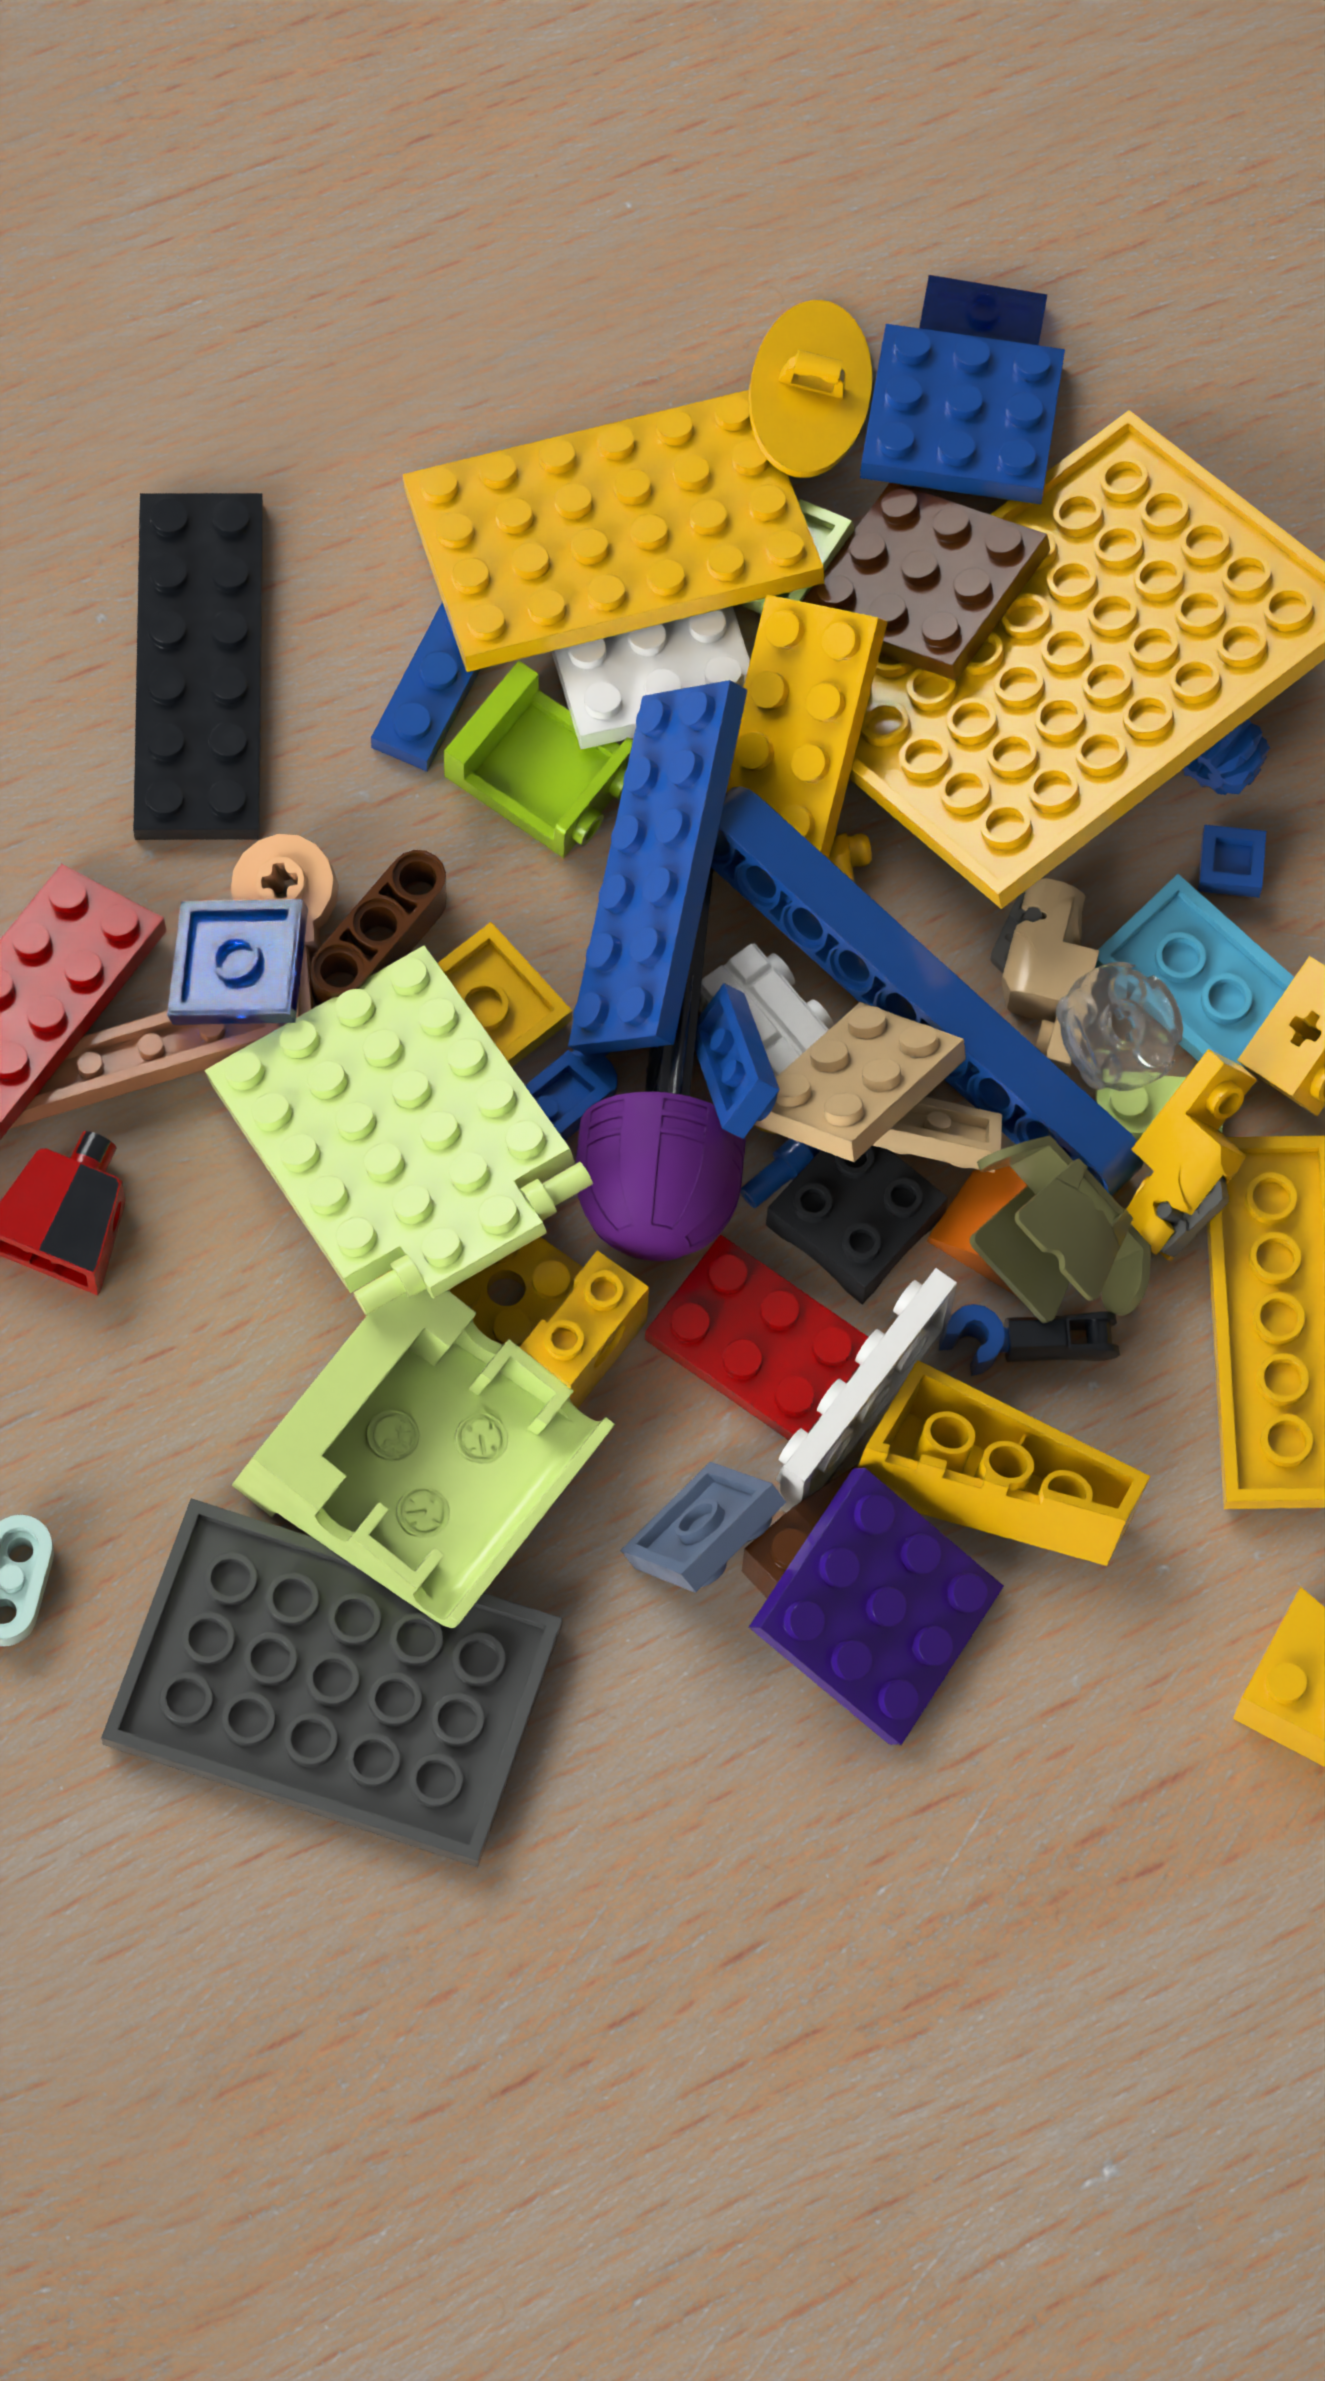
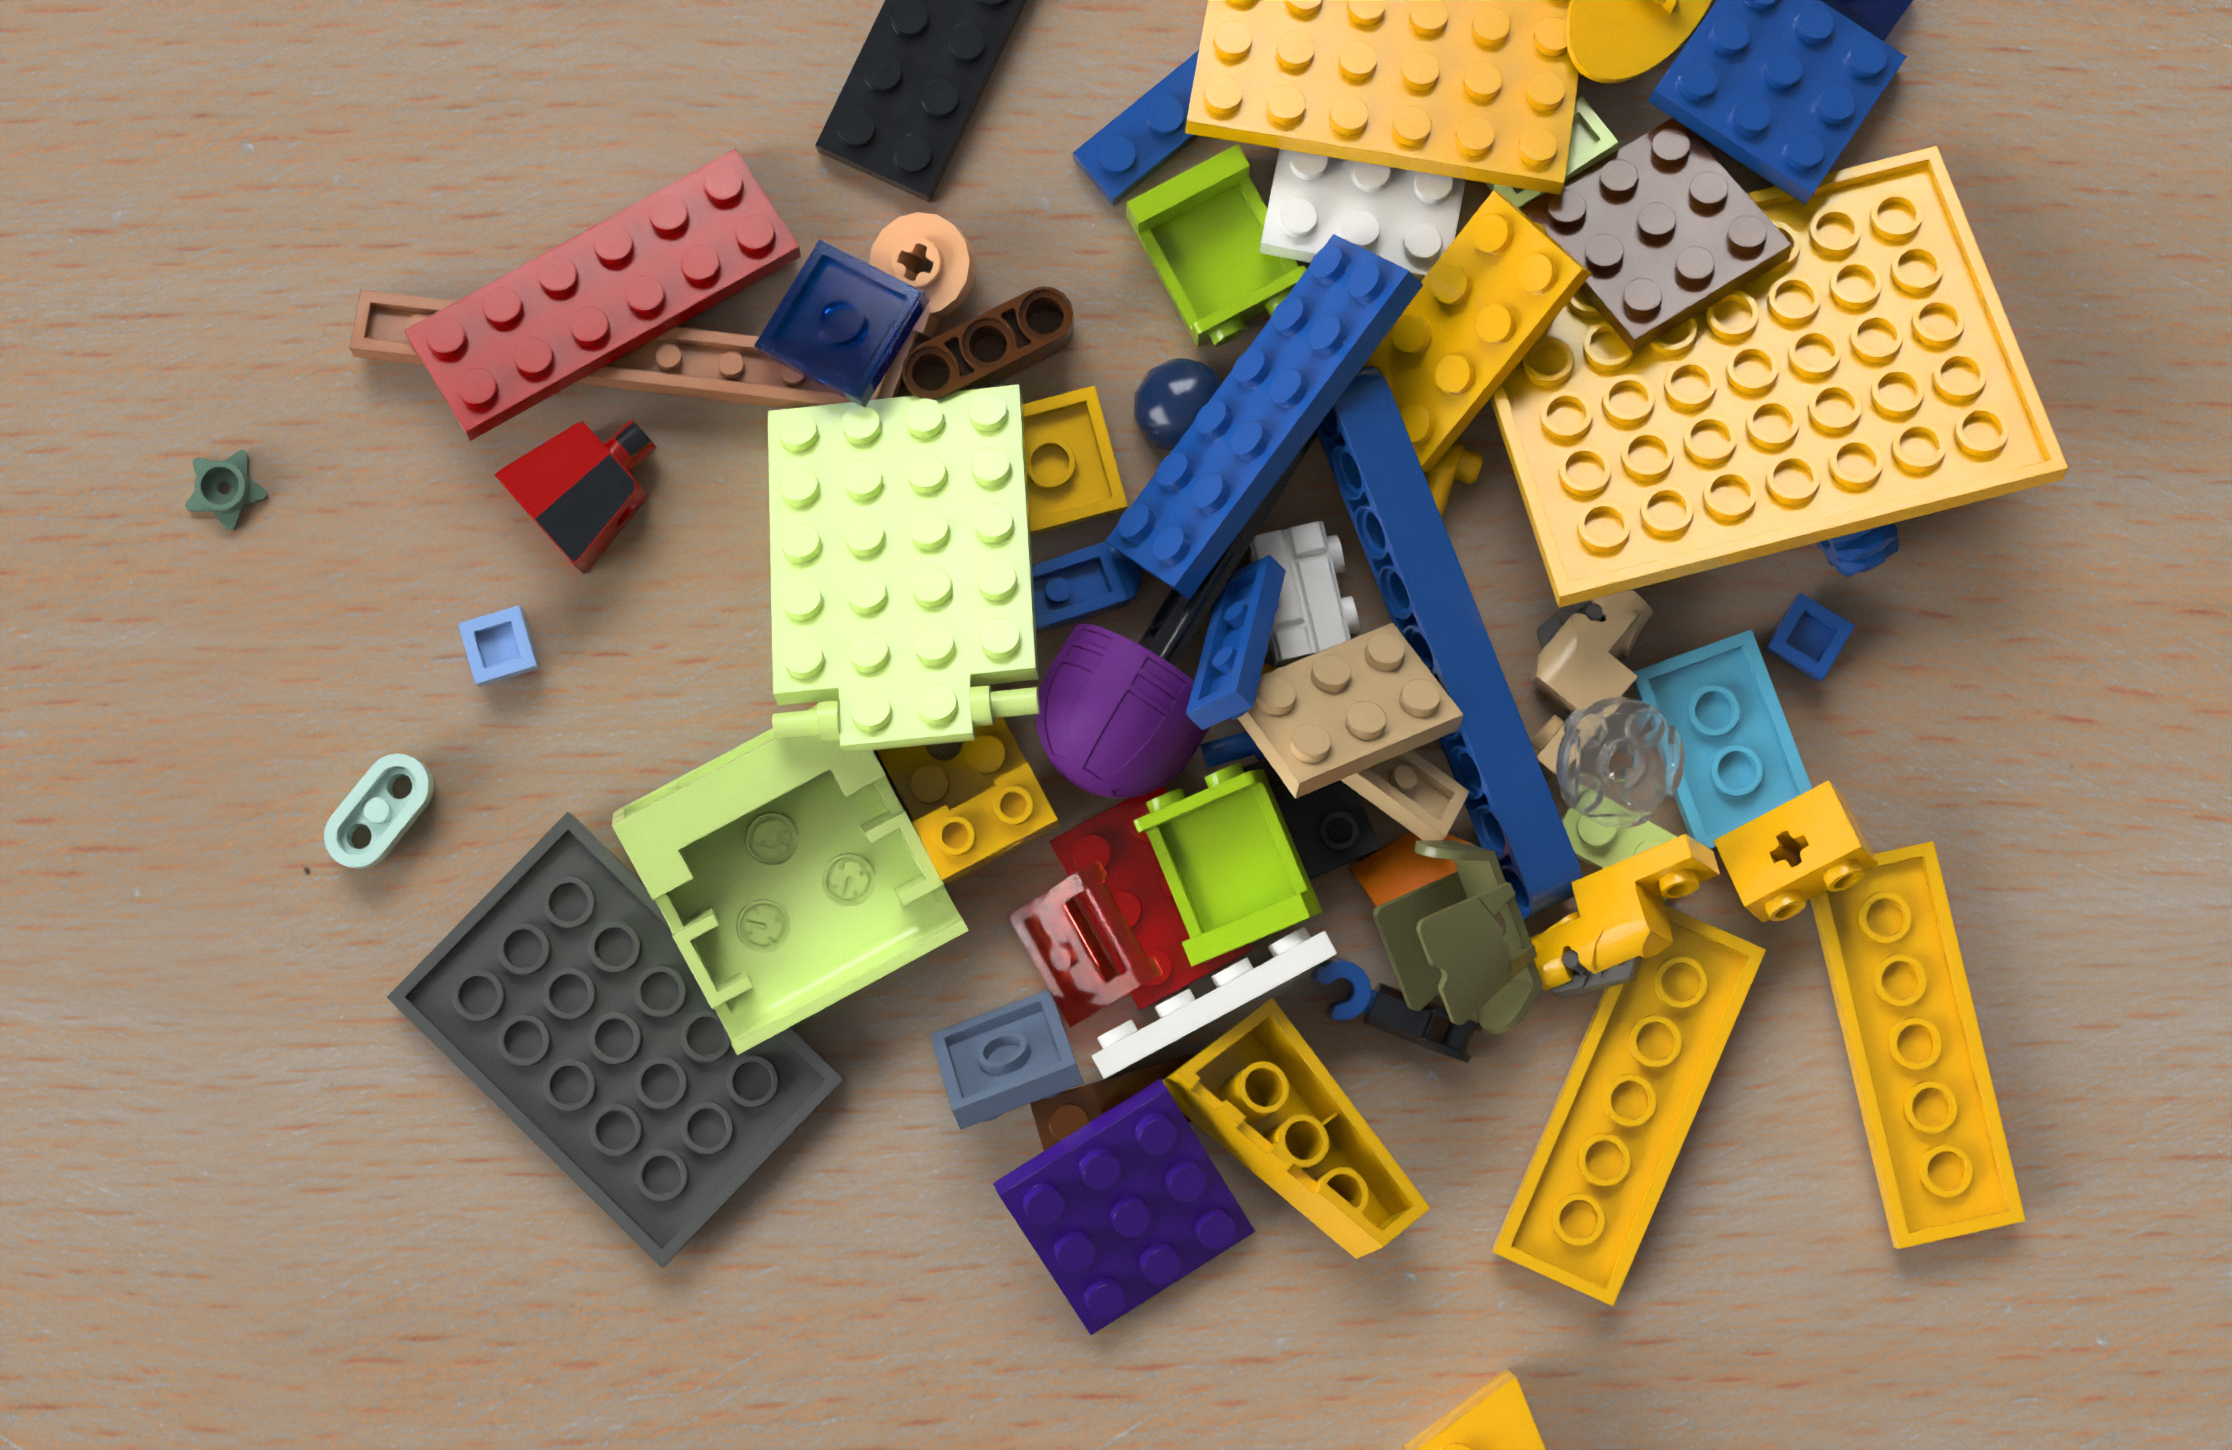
camera: 30 degrees right, 15 degrees up
(54, 1385) = (499, 646): none -> light blue plate
(566, 906) = (1172, 398): none -> dark blue hair
(713, 1416) = (1069, 951): none -> clear red plate
(818, 1262) = (1229, 862): none -> lime panel

